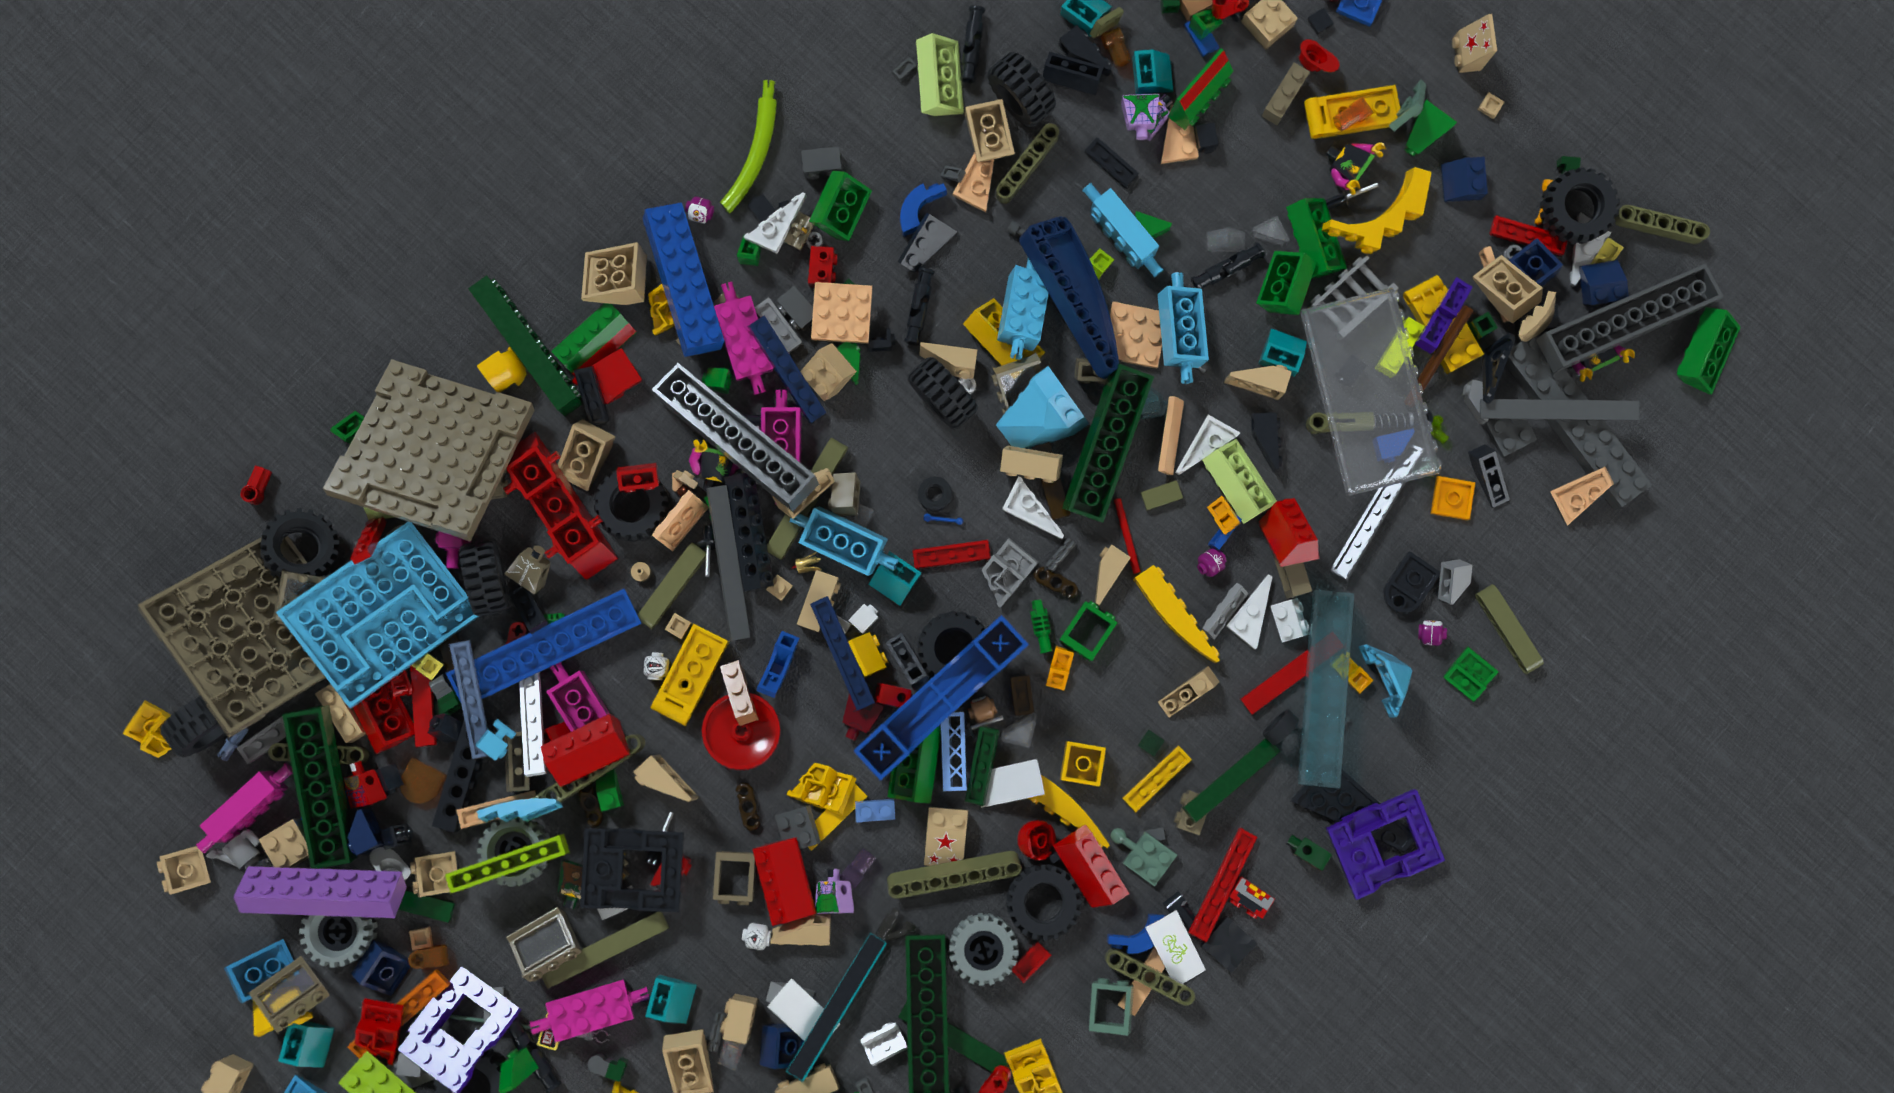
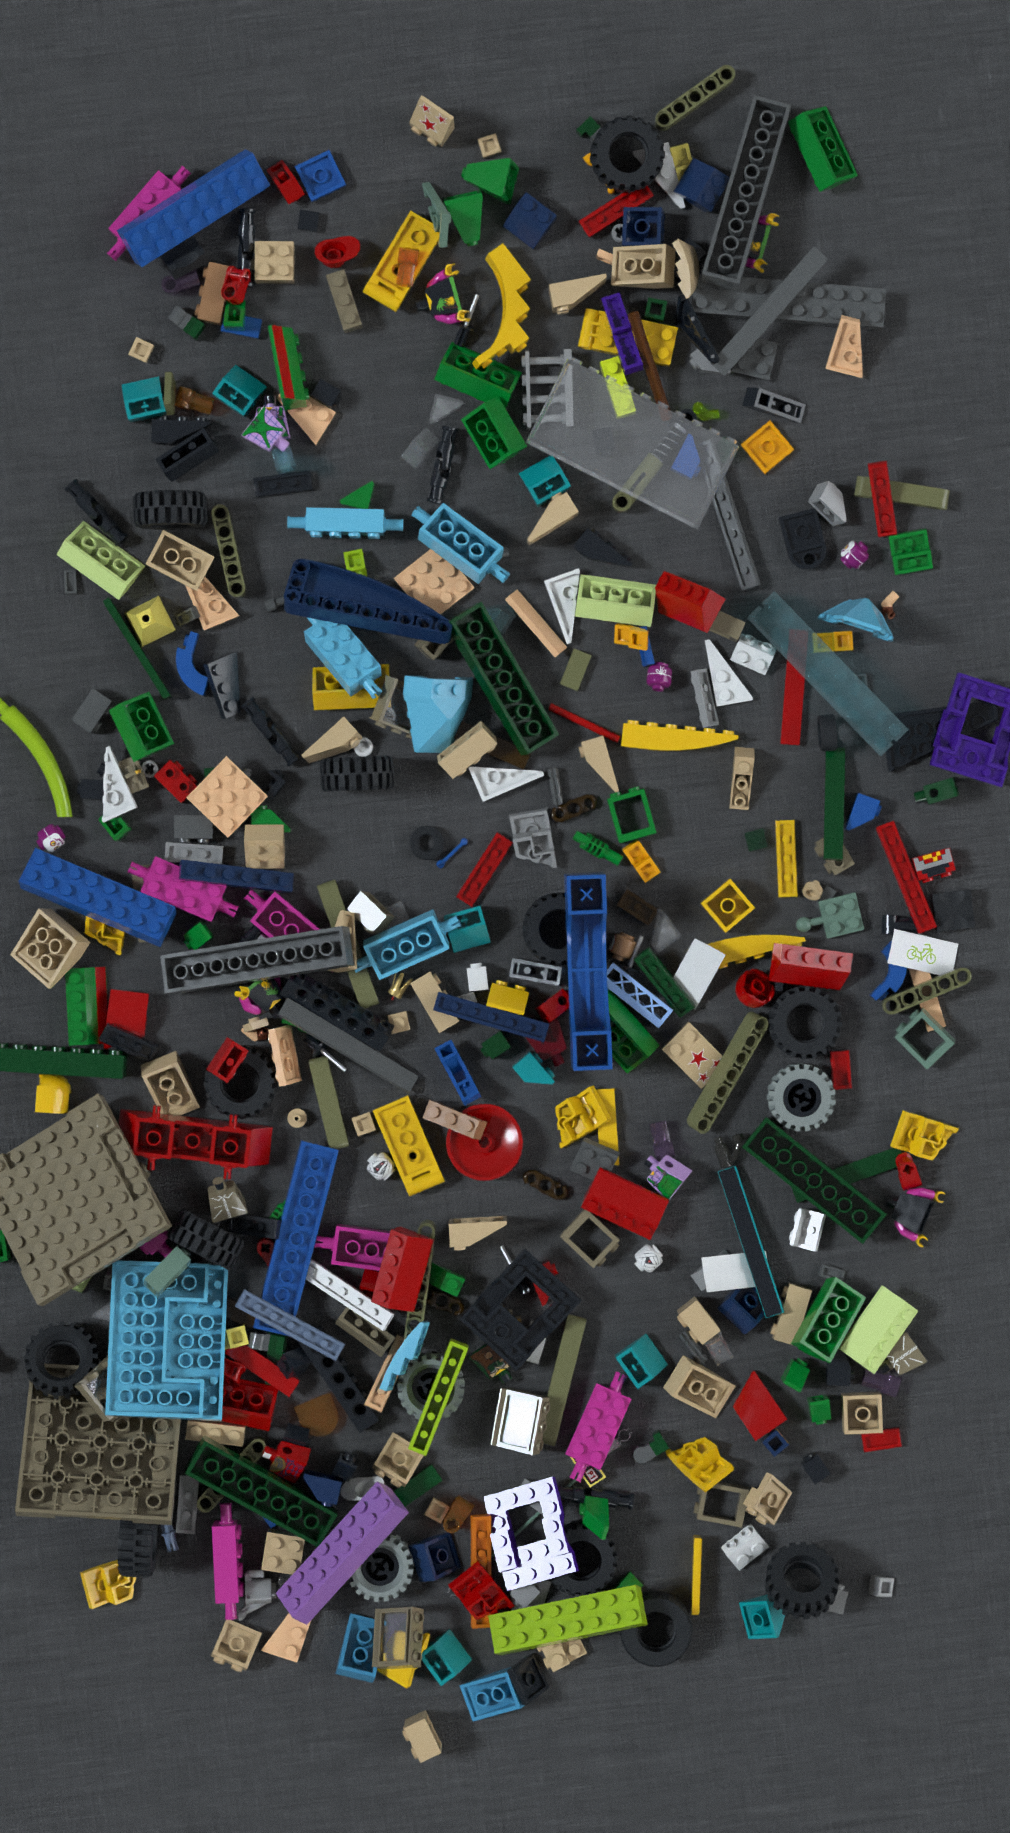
camera: 45 degrees left, 5 degrees up
(219, 908) = (287, 1639): none -> light nougat wing
(368, 539) = (102, 1303): red plate -> none
(433, 568) = (167, 1271): none -> sand green window
(492, 743) = (337, 1335): medium azure brick -> none
(804, 931) = (675, 1218): tan slope -> none
(823, 676) = (495, 1045): none -> dark green brick
(827, 721) = (532, 1071): none -> teal slope
(874, 810) = (629, 1091): medium blue plate -> none
(896, 156) = (136, 648): none -> dark green tile
(925, 150) = (158, 624): none -> light yellow slope
(1130, 147) = (284, 460): none -> clear light blue slope
(1150, 820) = (812, 890): none -> tan tile
(1244, 806) = (862, 811): none -> blue slope
(1416, 690) = (887, 606): none -> arm
(1442, 254) = (570, 293): none -> tan slope
(1473, 127) = (493, 177): none -> green slope
(1494, 617) = (882, 498): none -> red tile

